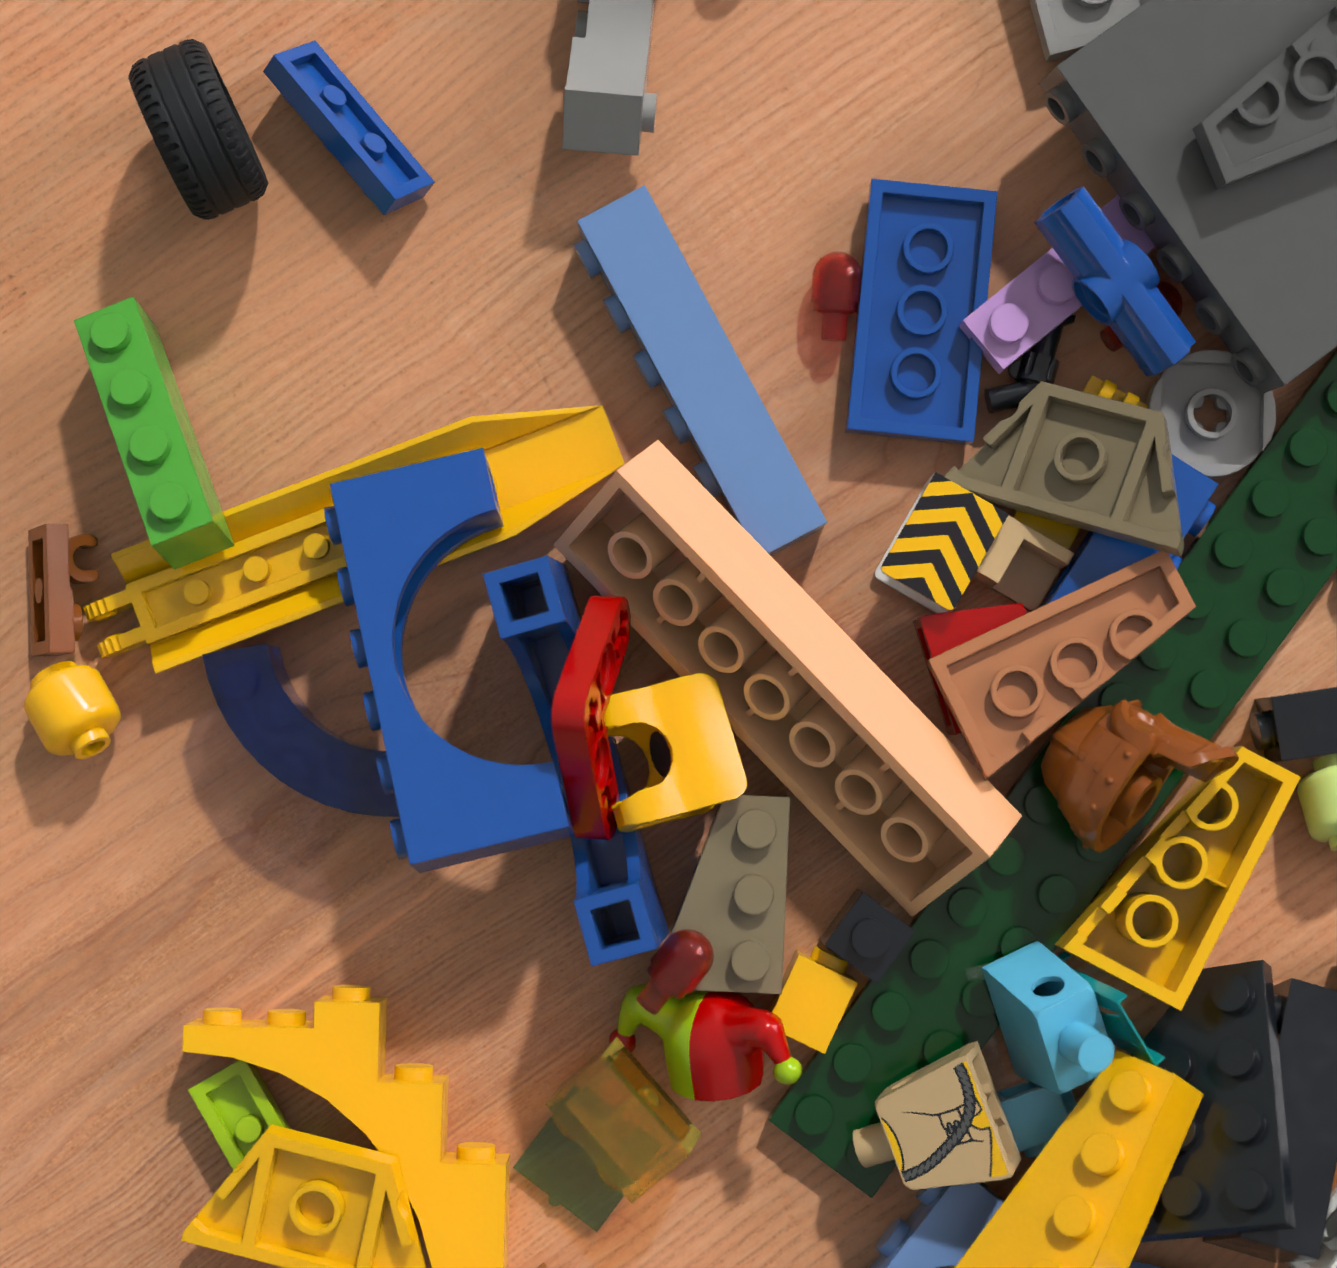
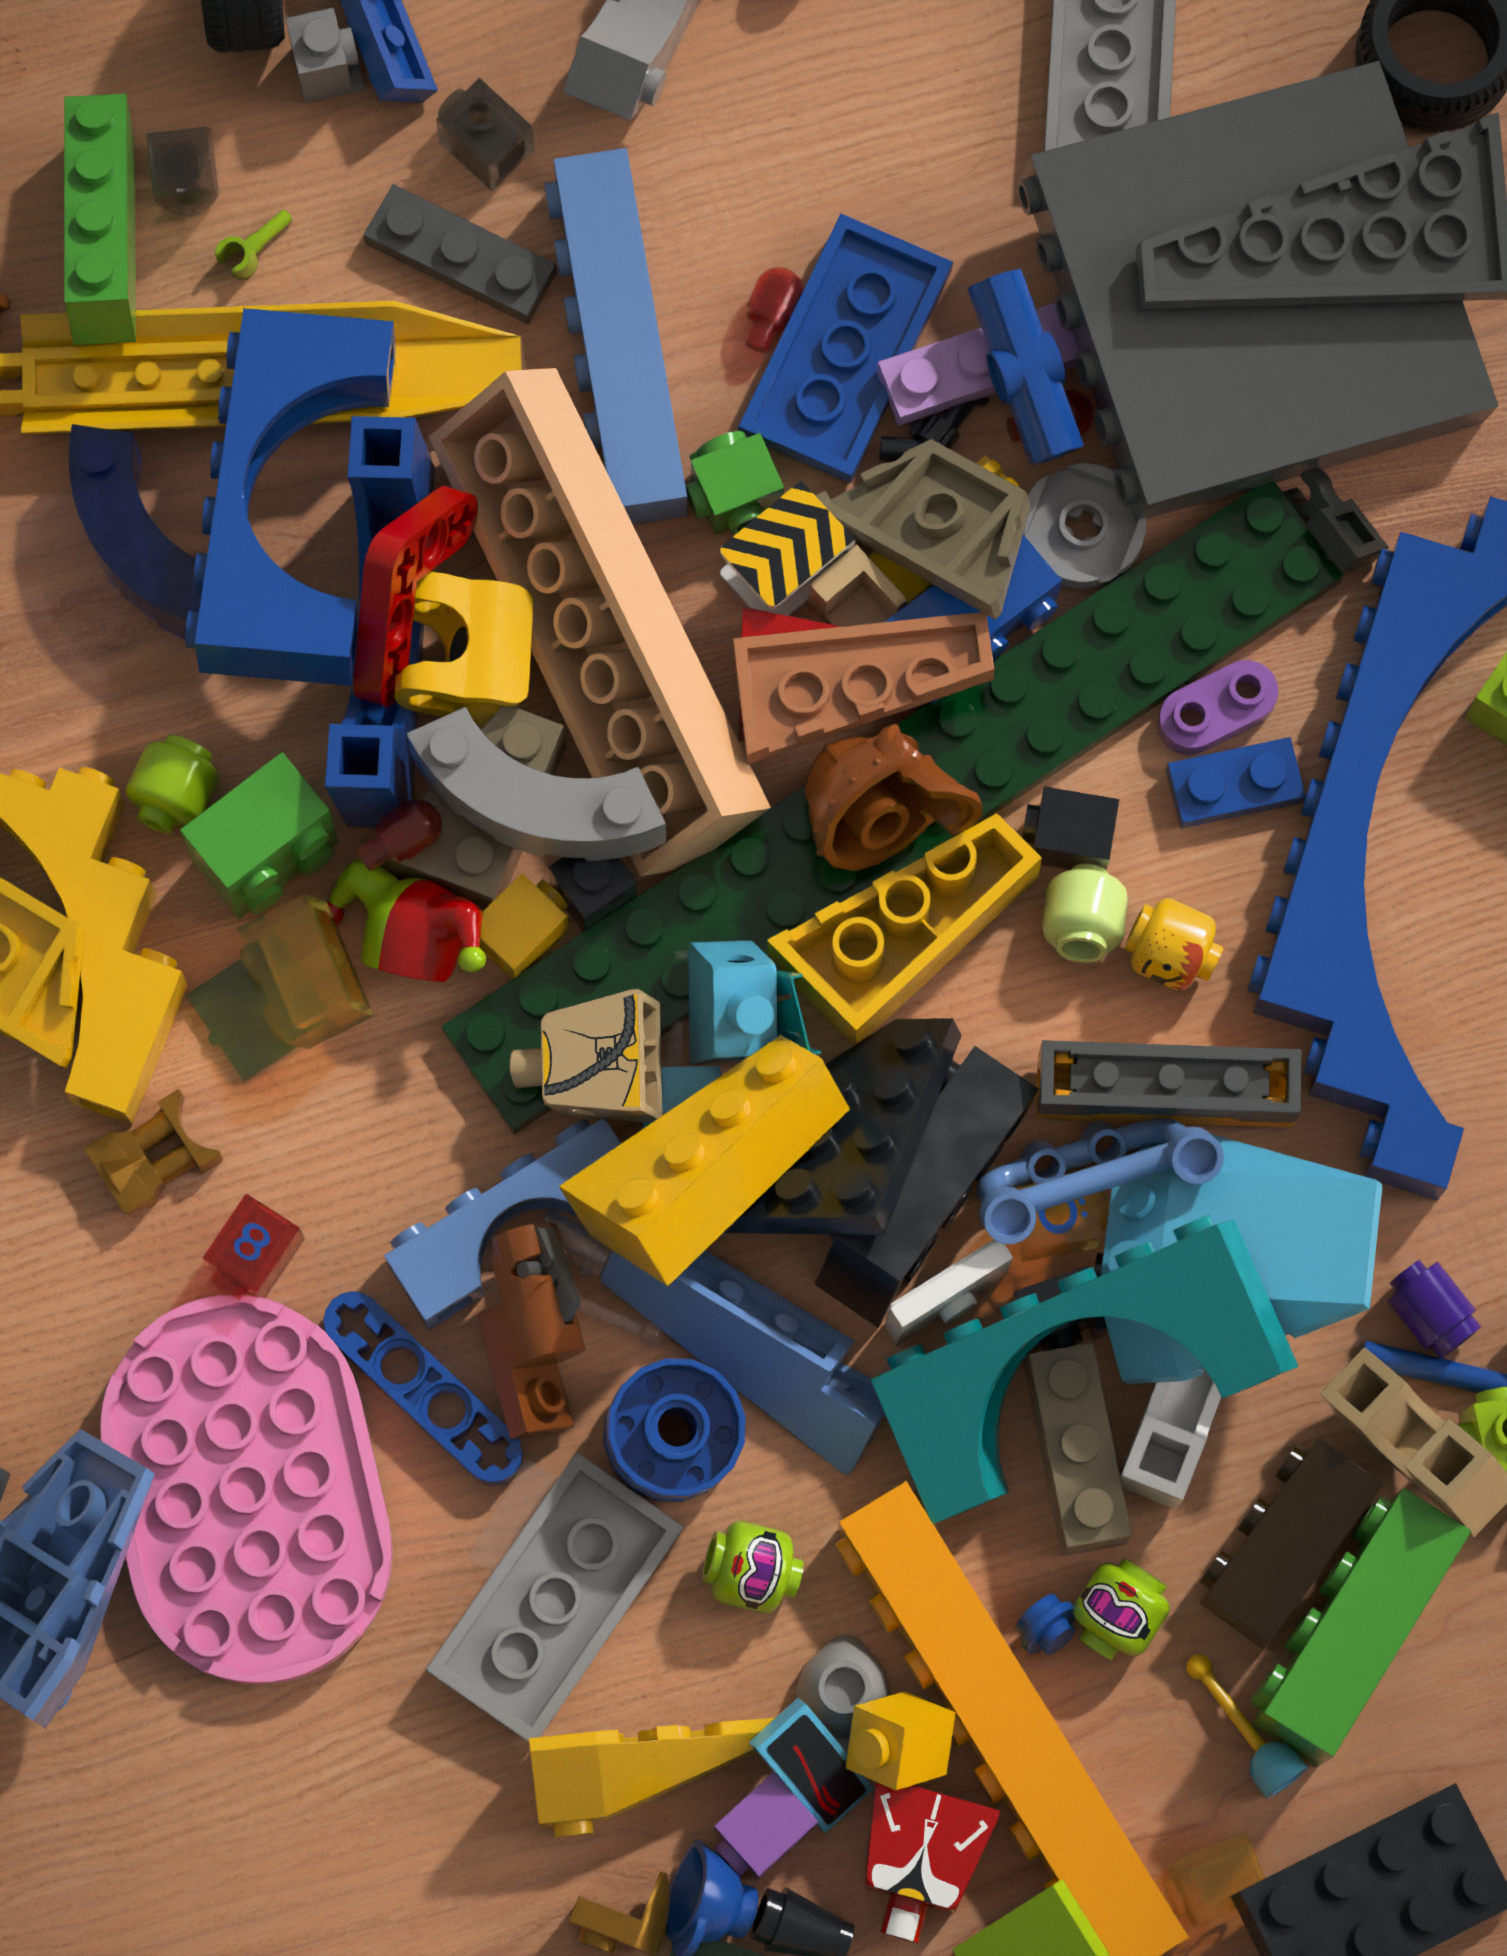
camera: 15 degrees right, 10 degrees down
(216, 348) = (183, 170): none -> clear smoke plate
(311, 398) = (251, 245): none -> lime hand
(312, 186) = (323, 56): none -> light grey brick
(428, 973) = (172, 783): none -> lime head
(495, 211) = (484, 132): none -> clear smoke brick
(514, 340) = (460, 253): none -> dark grey plate
(533, 1007) = (261, 837): none -> bright green brick
(797, 909) = (532, 808): none -> light grey brick
(861, 486) = (732, 481): none -> bright green brick

